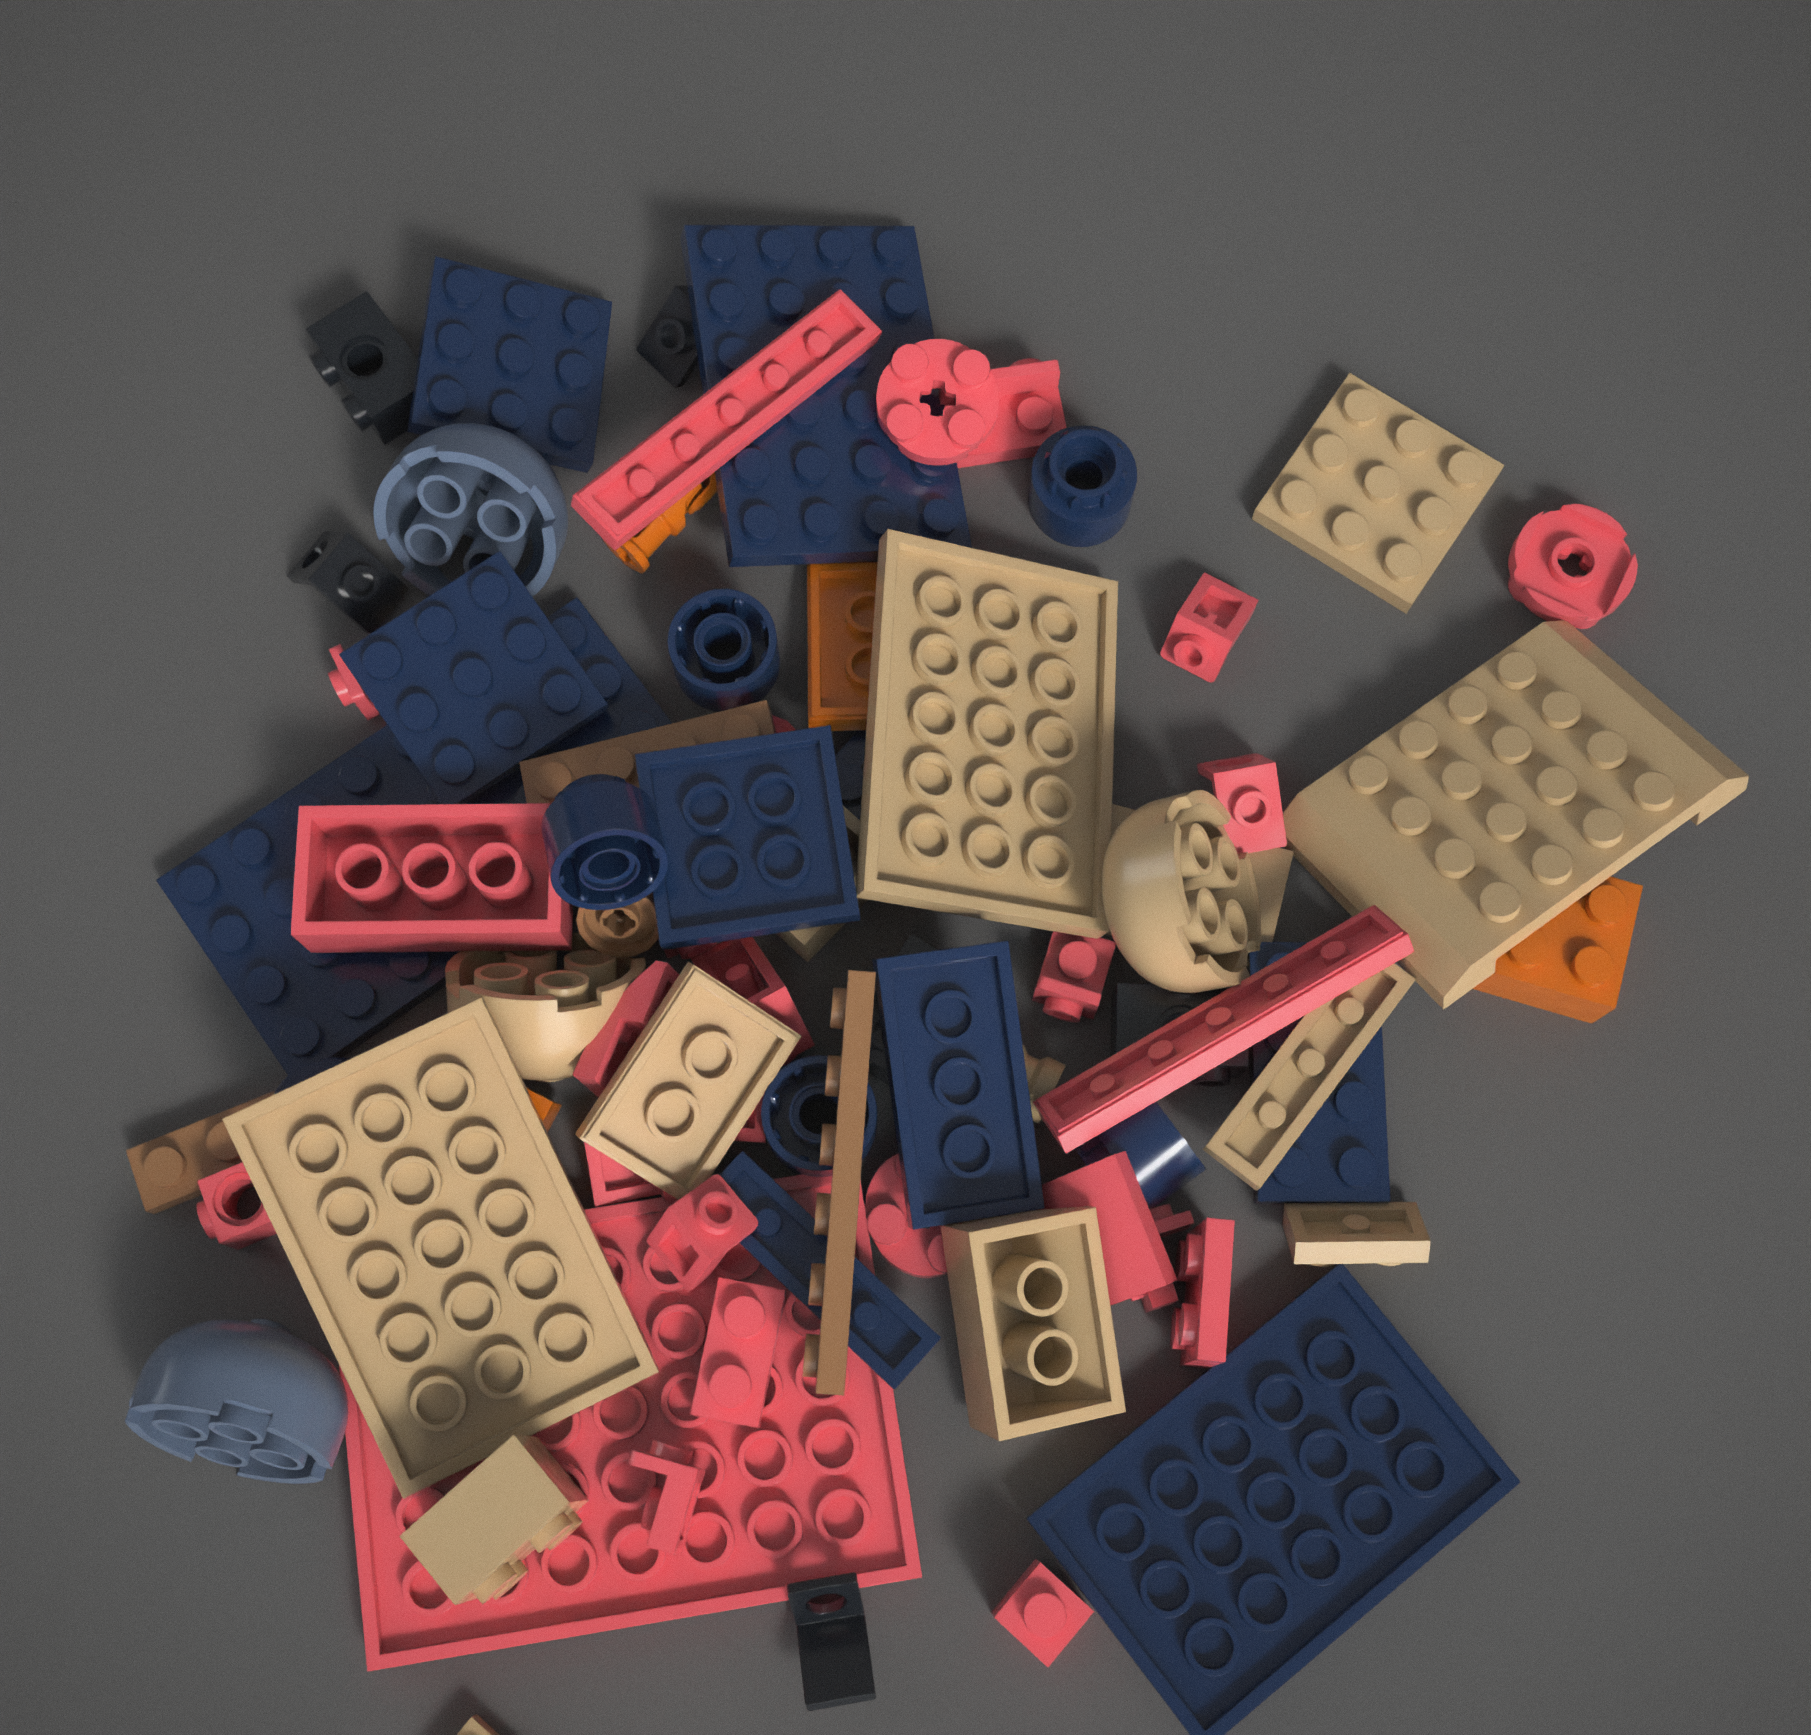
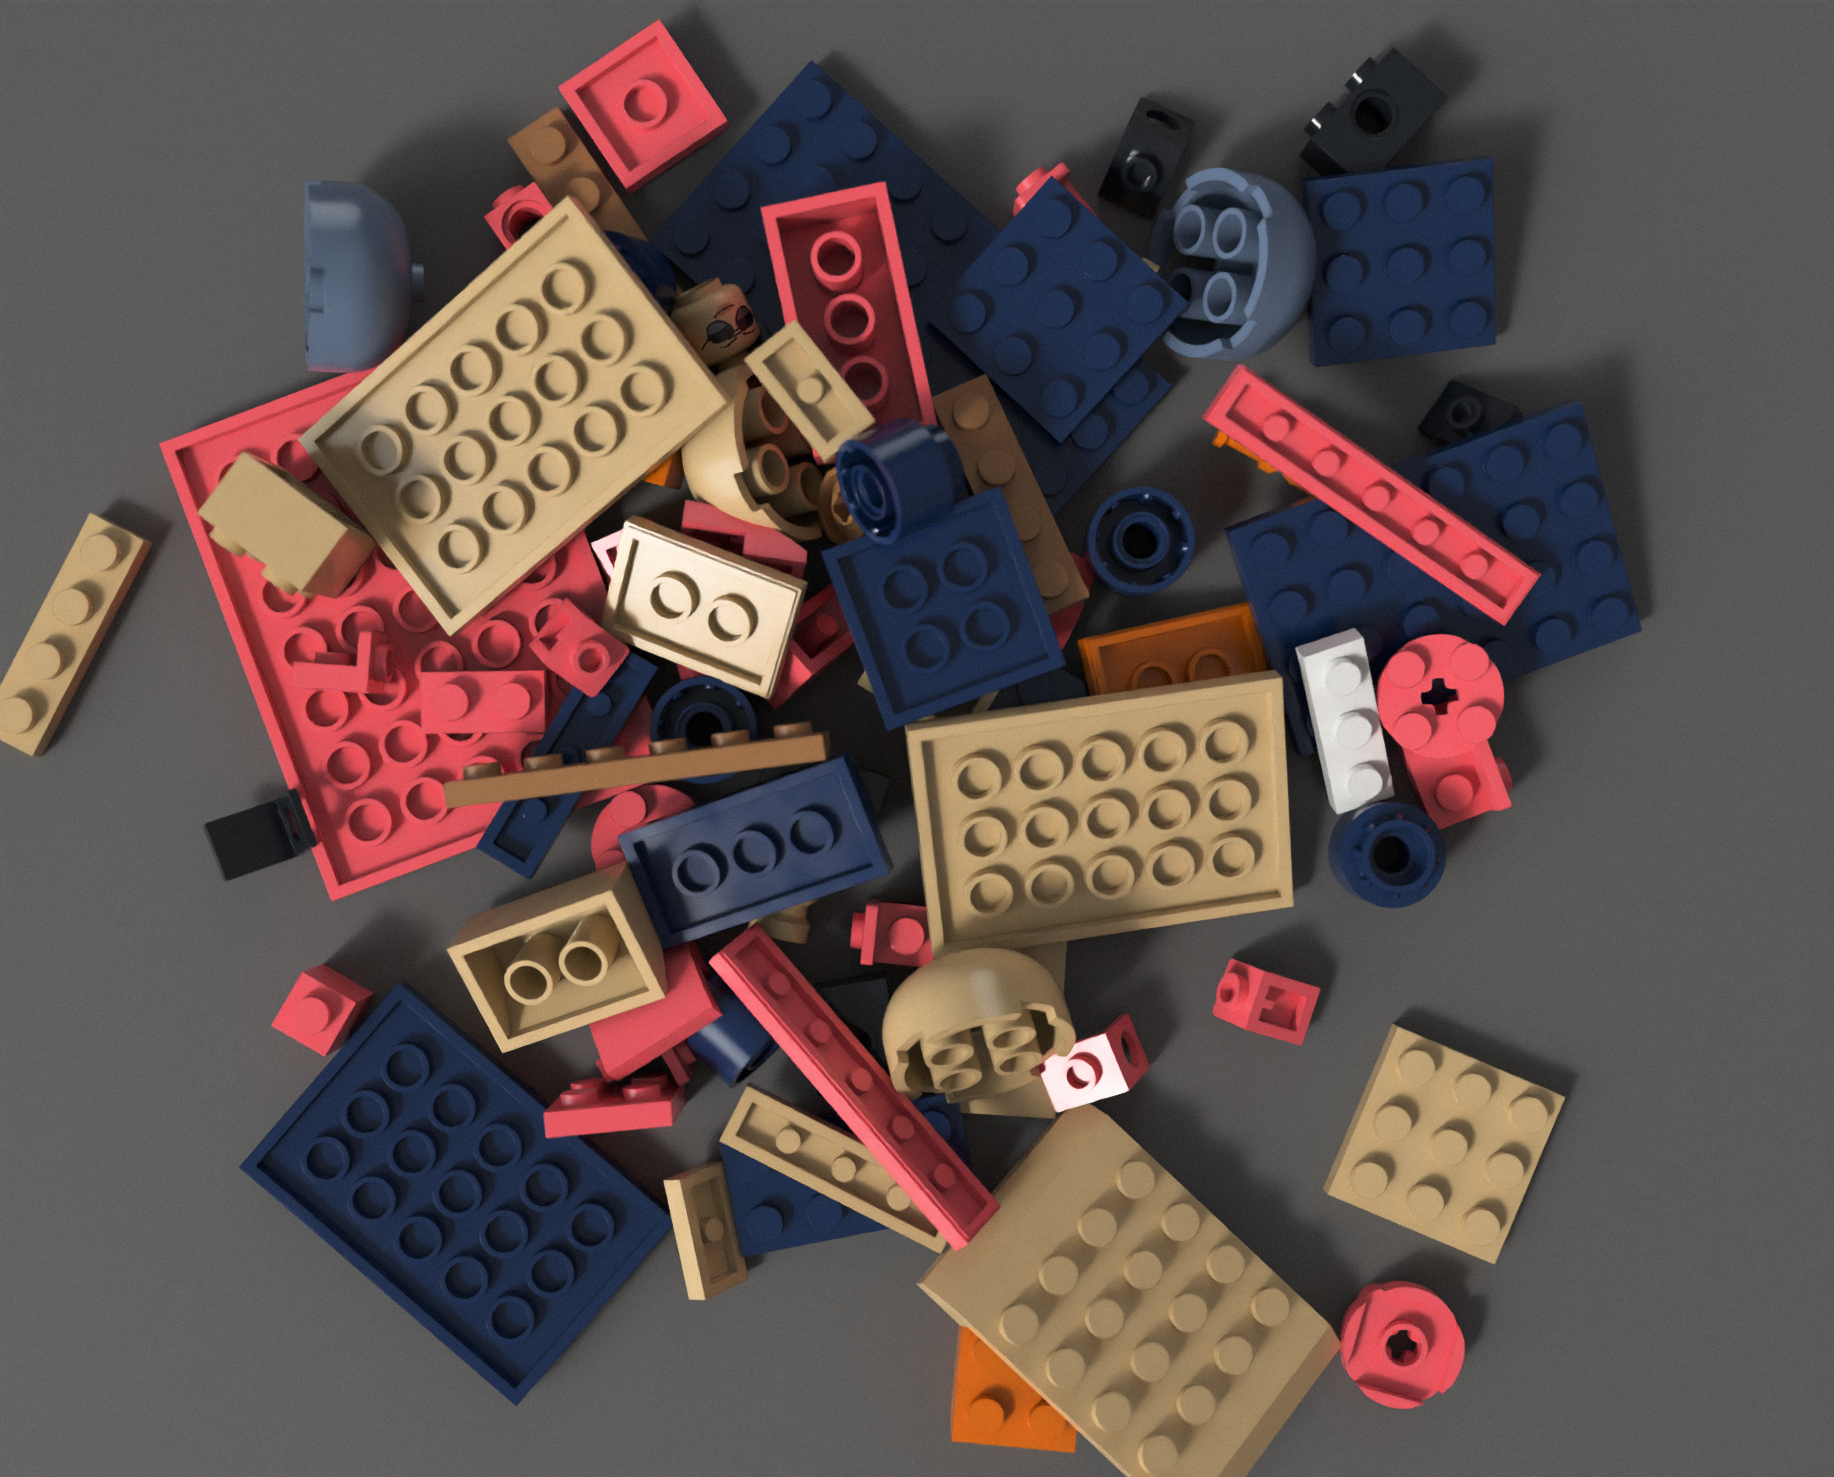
camera: 80 degrees right, 15 degrees up
(153, 1059) = (644, 106): none -> coral plate
(391, 1013) = (717, 323): none -> tan head
(491, 915) = (809, 390): none -> tan plate
(943, 492) = (1345, 720): none -> white plate

